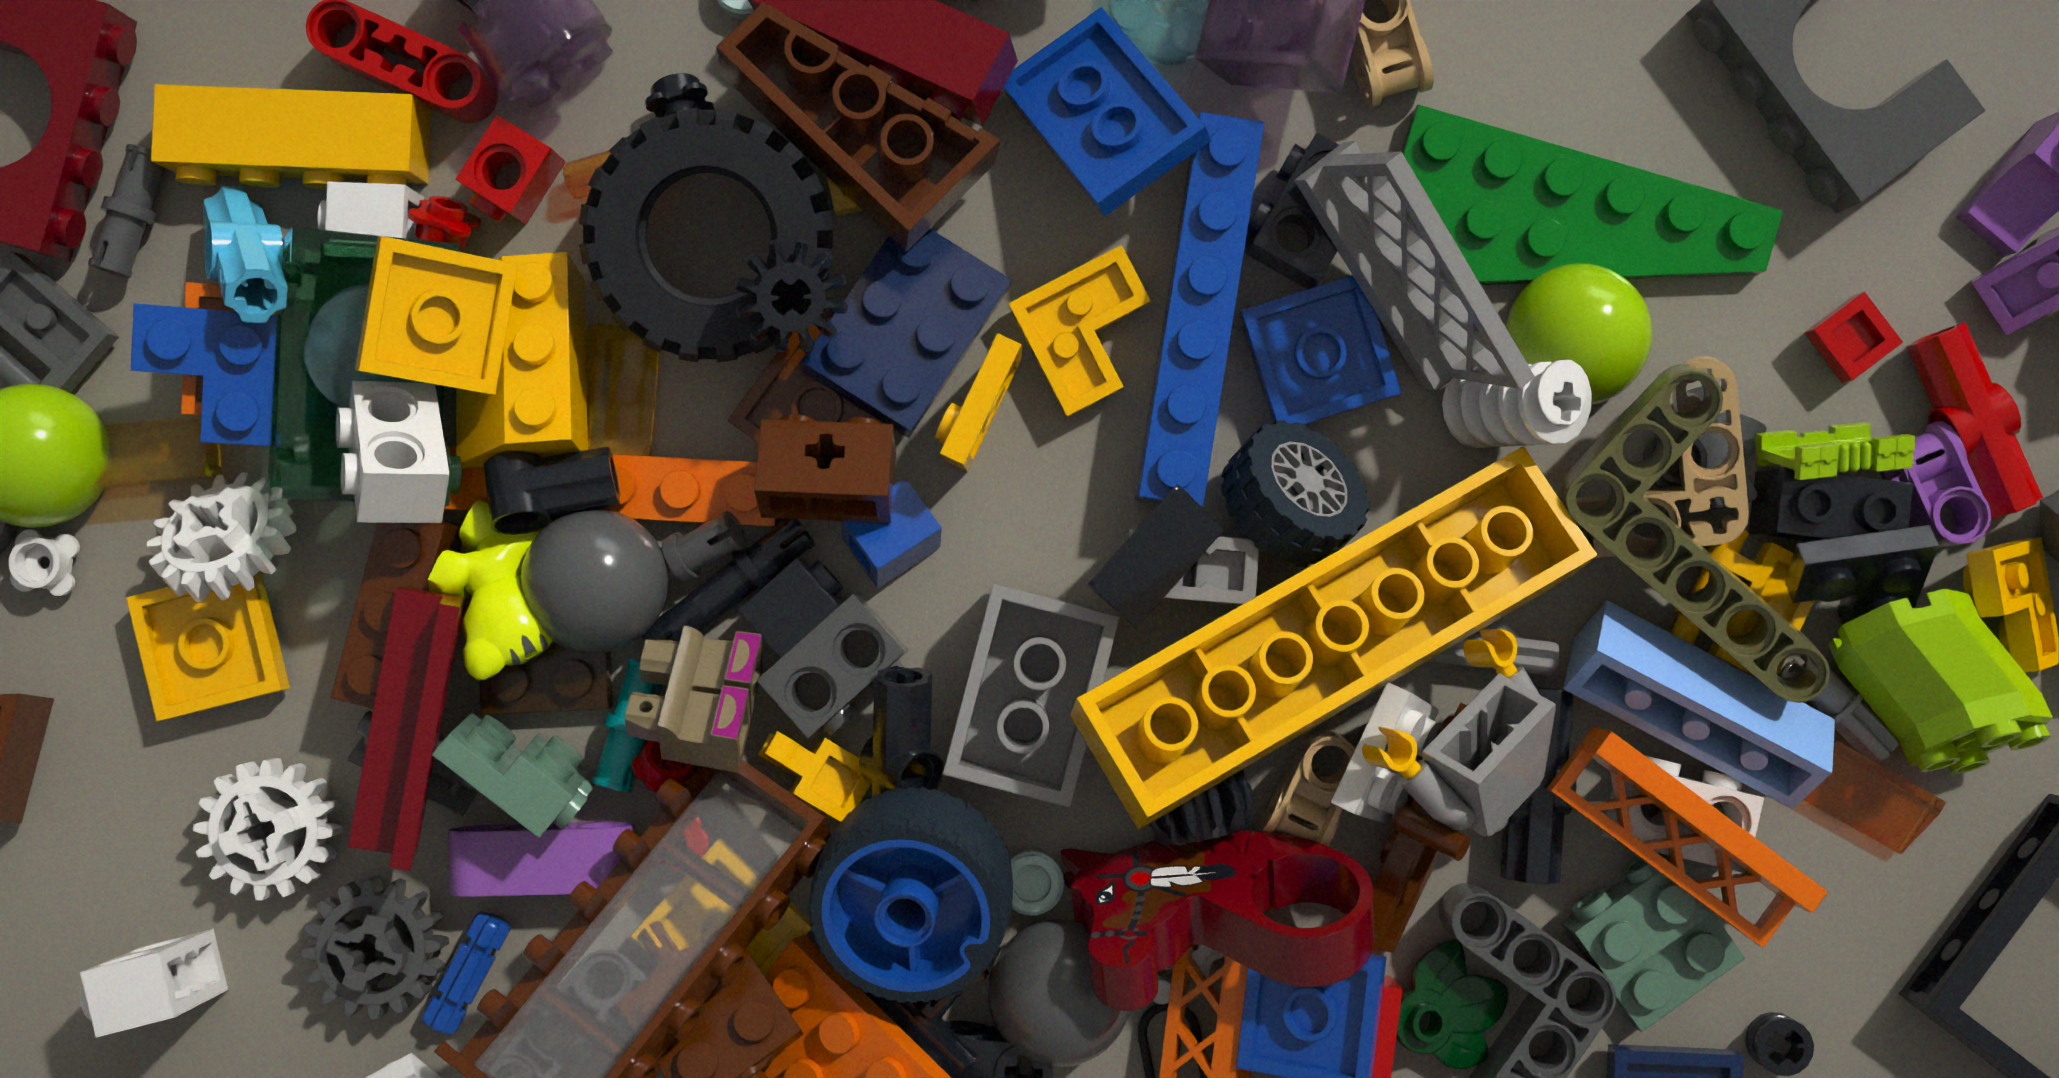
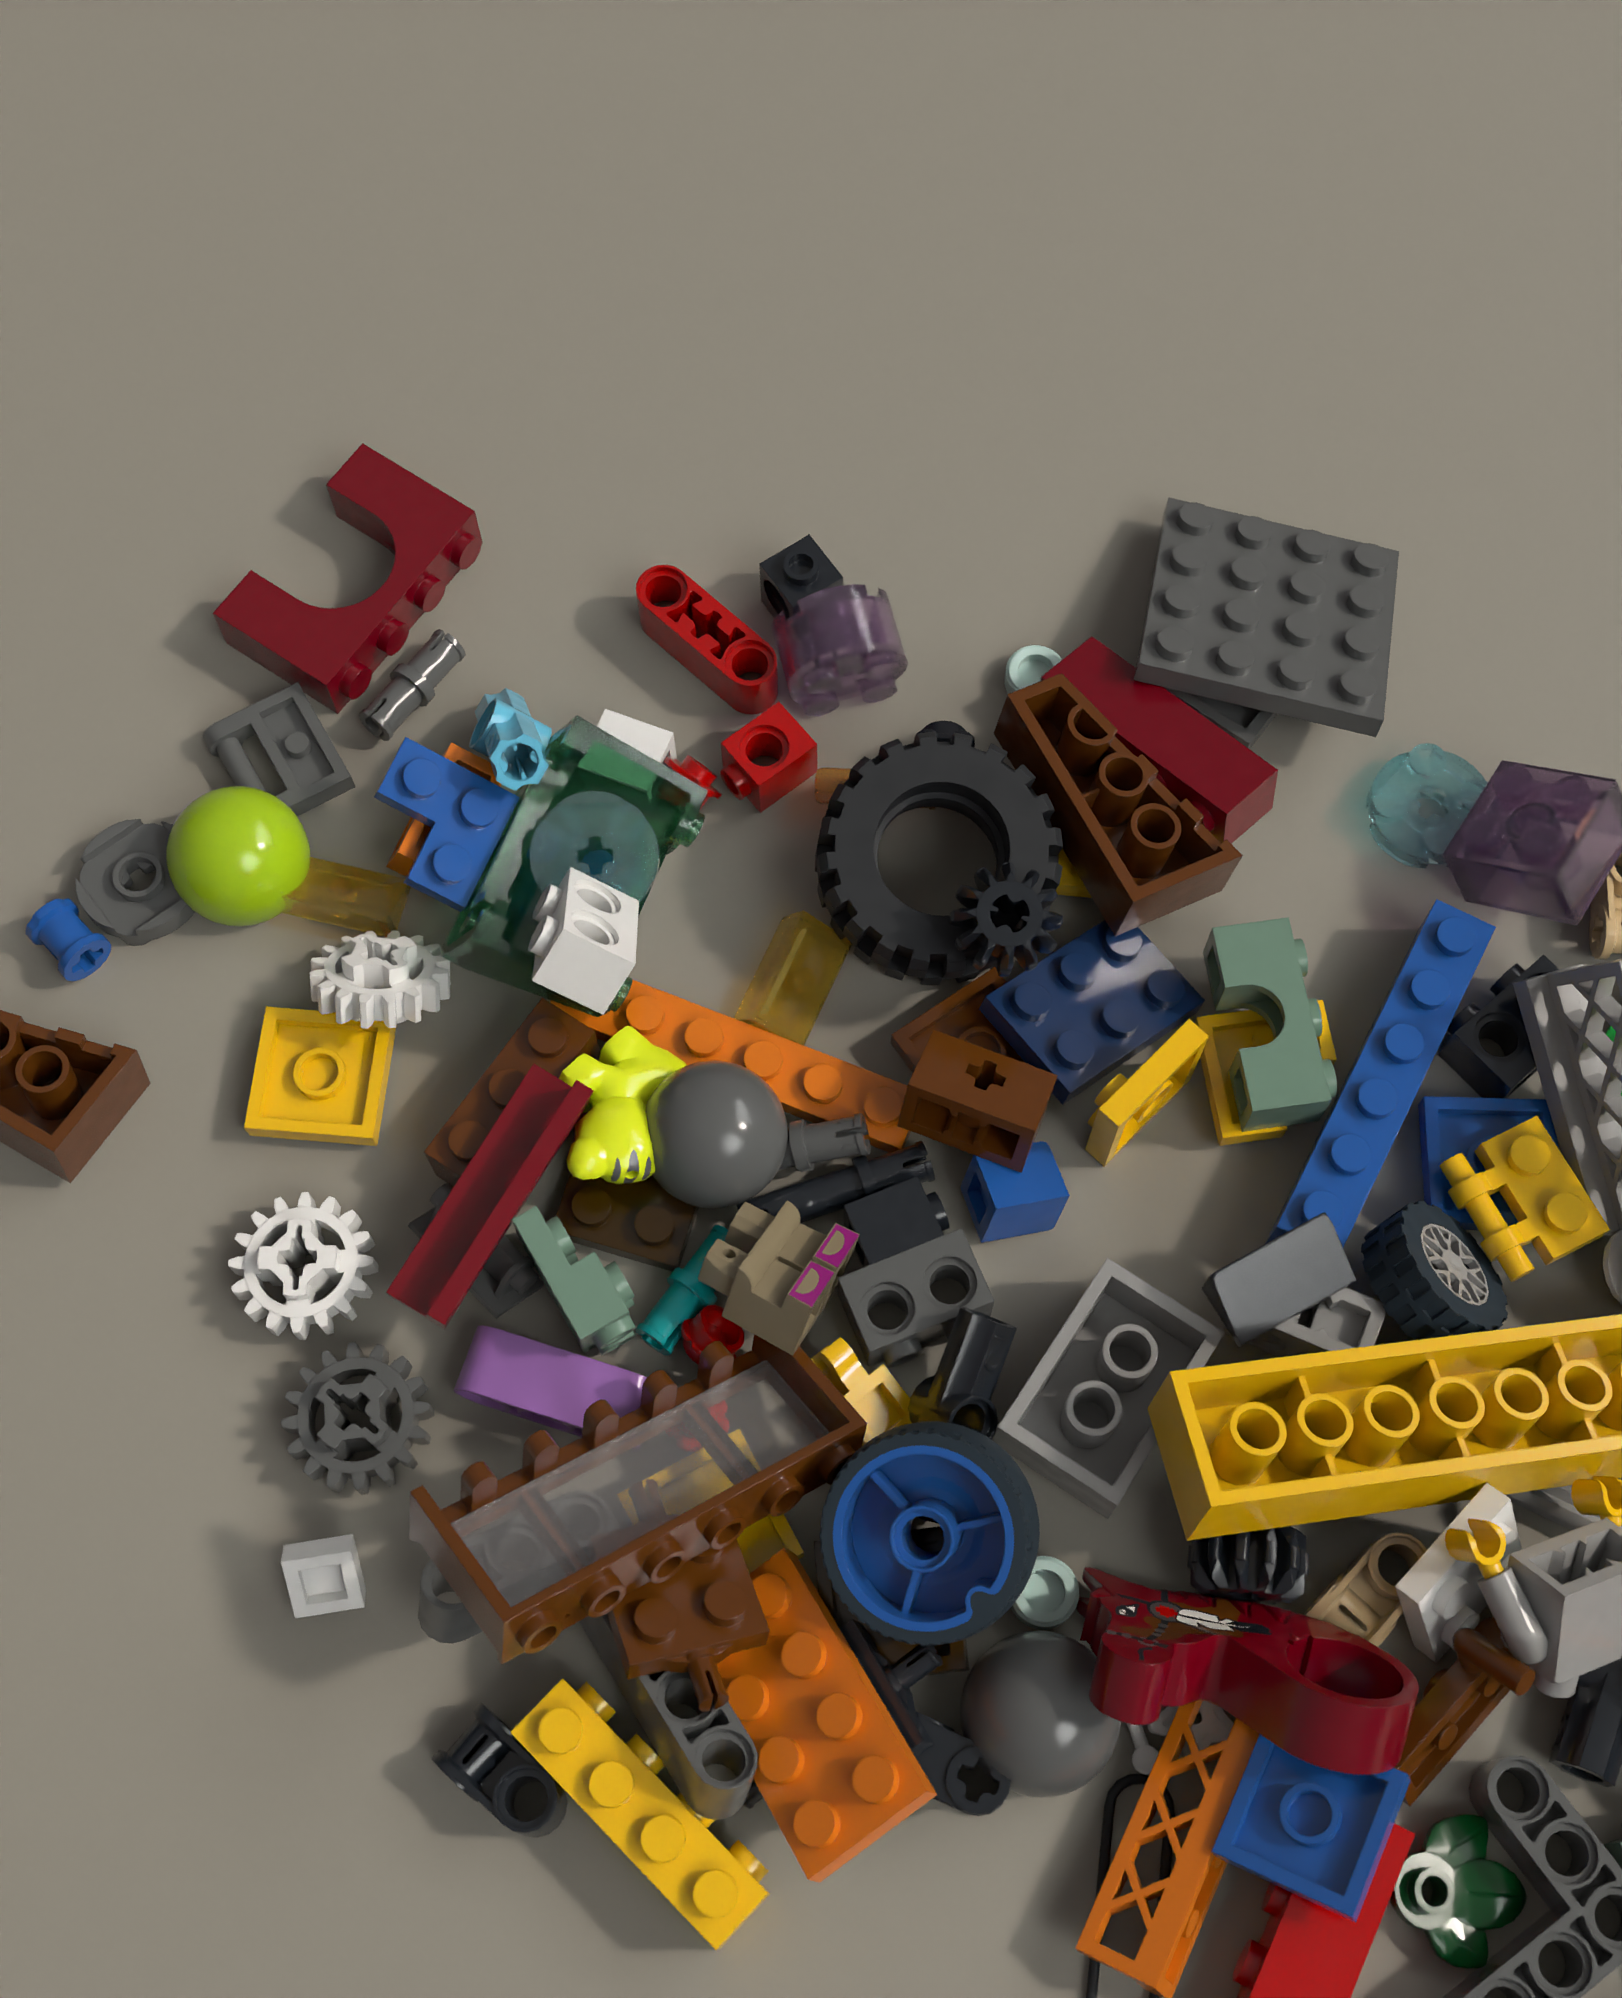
camera: 20 degrees right, 20 degrees down
(26, 559) = (199, 938): white plate -> none
(152, 983) = (135, 1365): white brick -> none
(290, 136) = (582, 665): yellow brick -> none
(436, 315) = (669, 836): yellow plate -> none
(466, 972) = (438, 1475): blue axle -> none
(532, 489) = (688, 1028): black piece -> none
(541, 372) = (717, 920): yellow slope -> none
(1055, 243) = (1263, 971): none -> sand green arch
(1104, 111) = (1343, 874): blue plate -> none
(1370, 371) = (1538, 1189): none -> yellow plate

